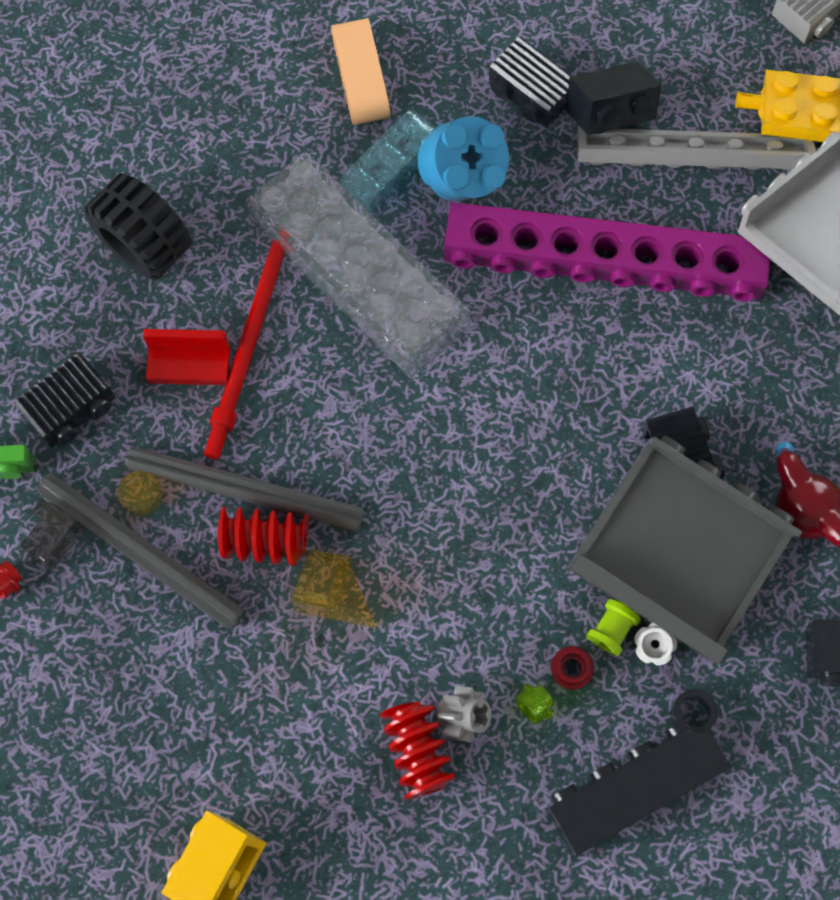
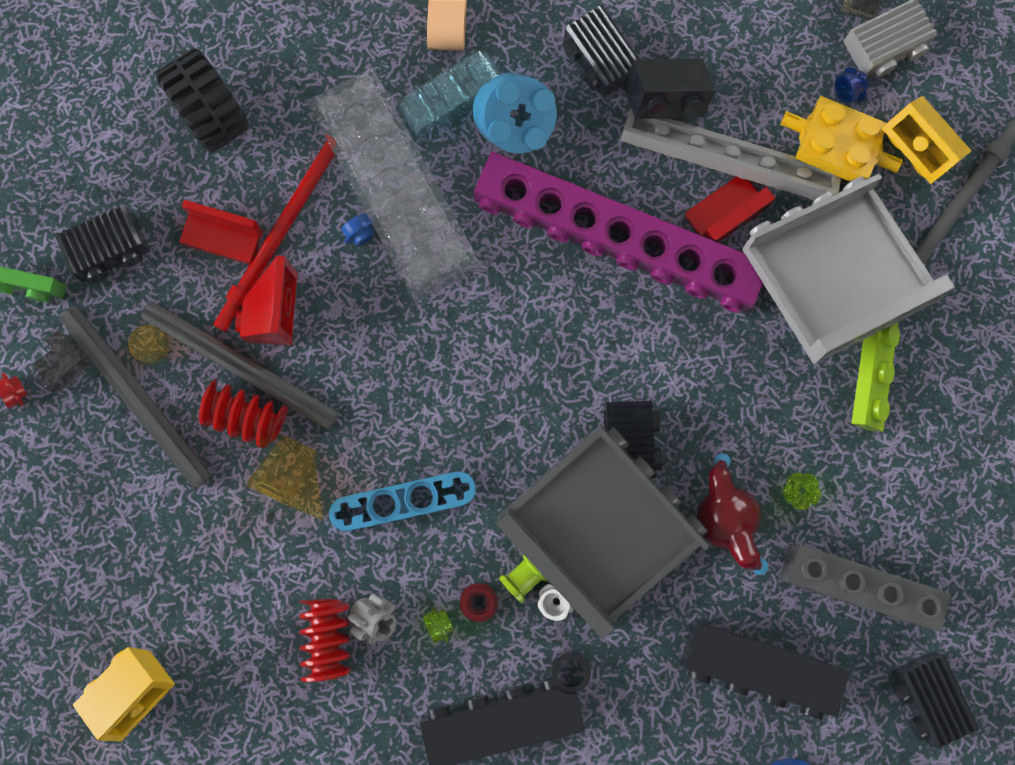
camera: 10 degrees right, 10 degrees up
(260, 417) = (270, 306): none -> red slope
(332, 318) = (358, 230): none -> blue plate
(456, 578) = (403, 505): none -> dark azure beam
(710, 200) = (728, 209): none -> red panel
(794, 52) = (852, 85): none -> clear blue plate

